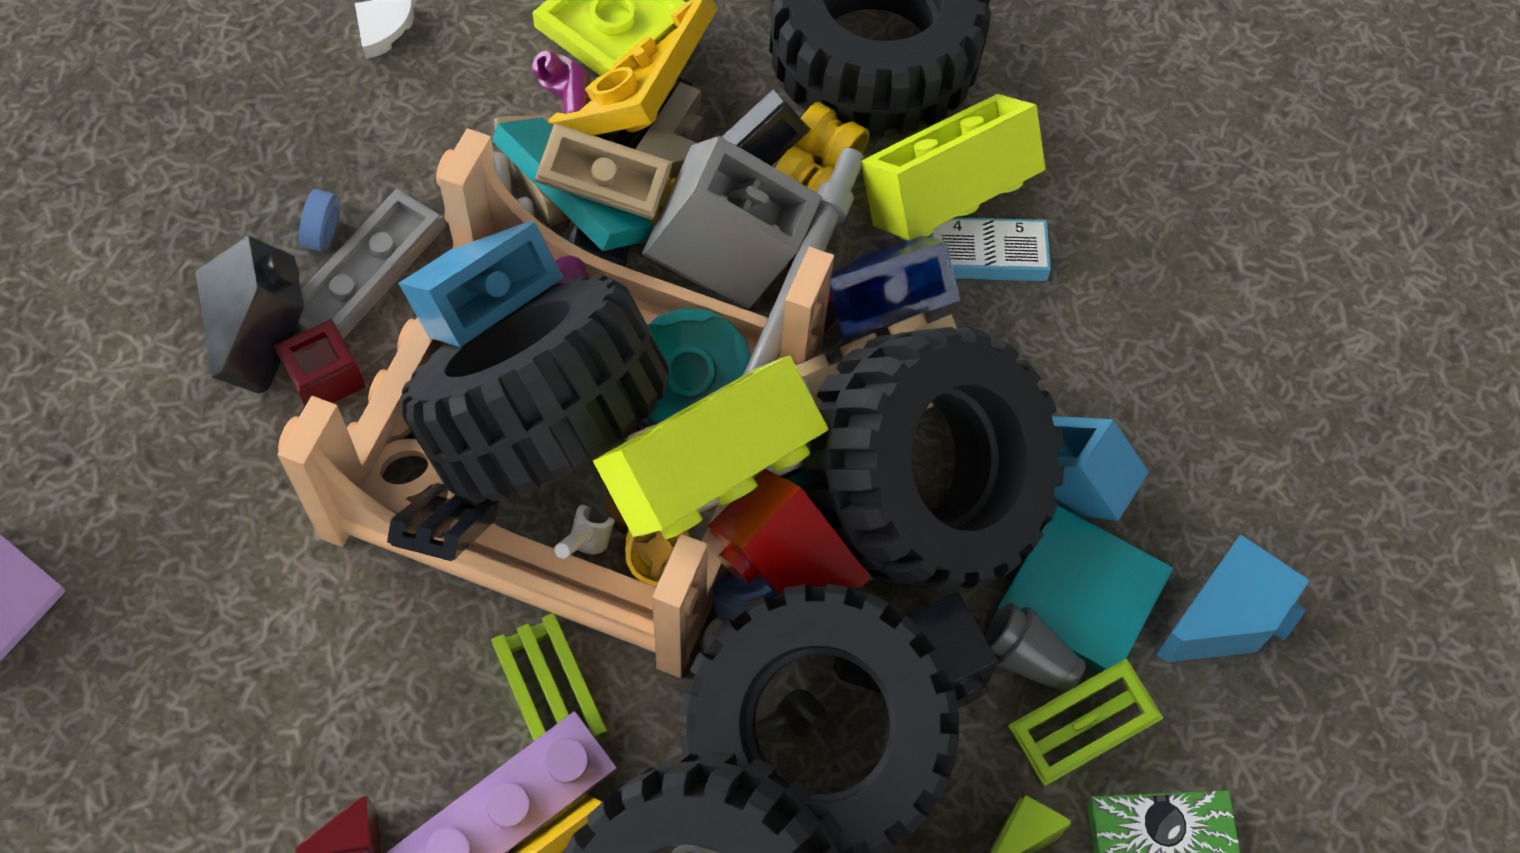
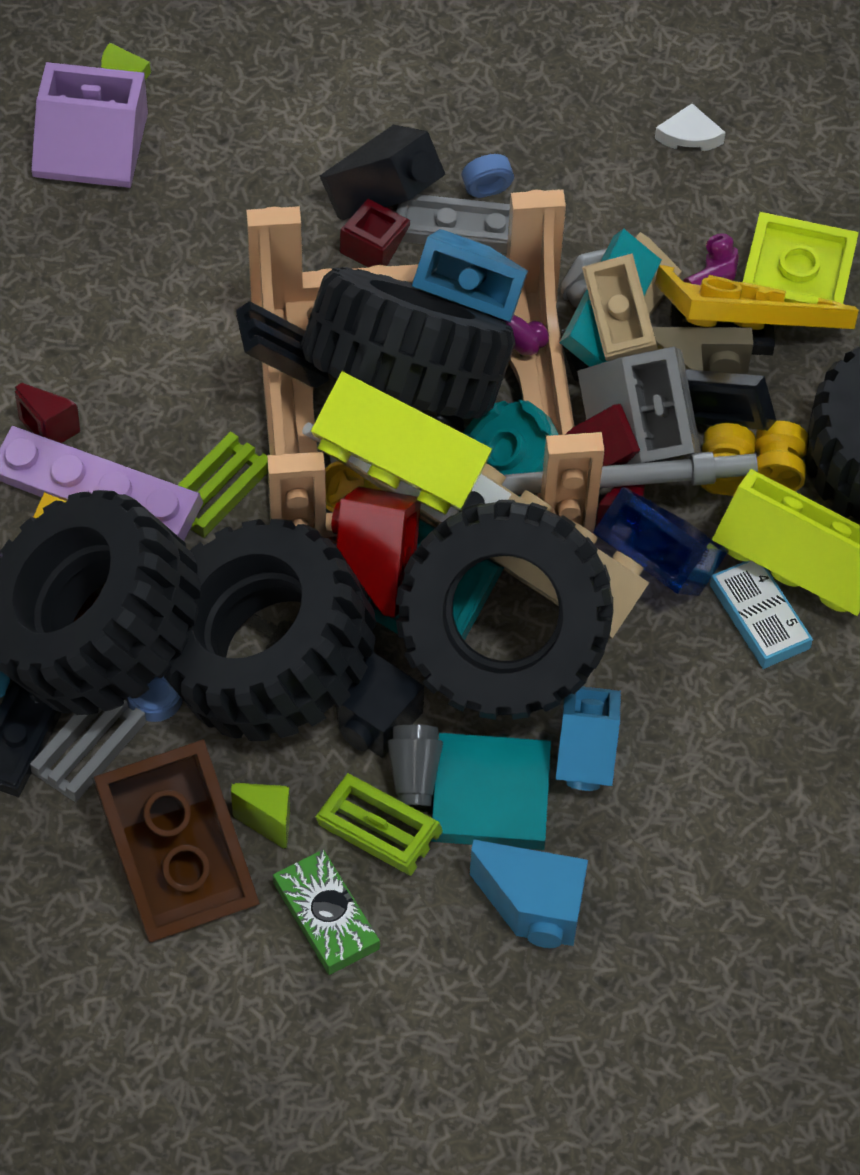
camera: 65 degrees right, 5 degrees down
(751, 272) = (617, 435): none -> dark red slope

